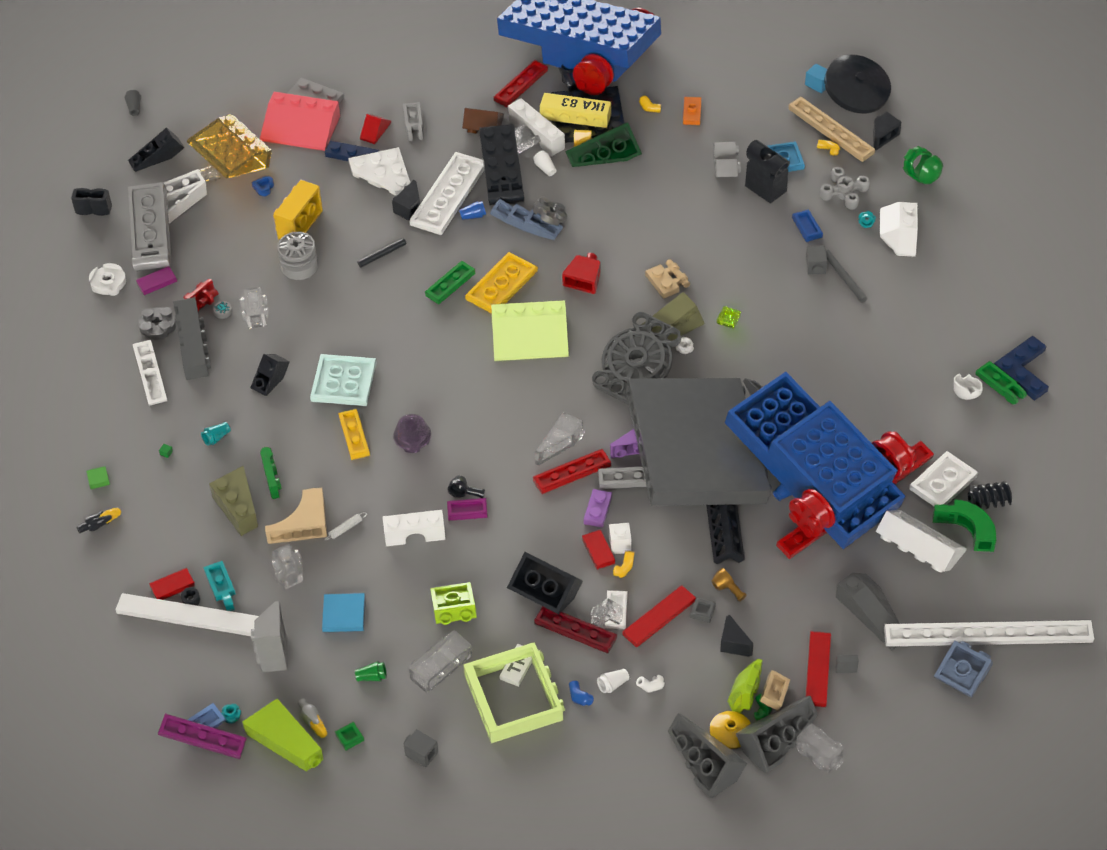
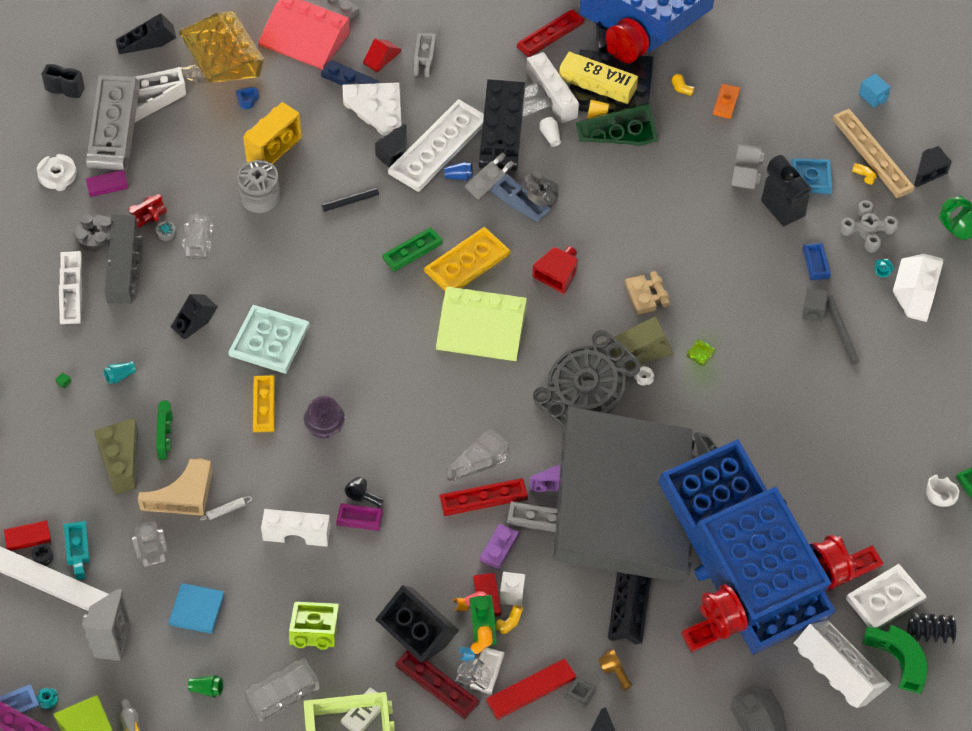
camera: 10 degrees right, 5 degrees up
(477, 118) = (496, 67): reddish brown slope -> none
(501, 210) = (487, 177): none -> light grey hinge
(602, 568) = (482, 622): none -> torso
(857, 84) = (915, 106): black dish -> none

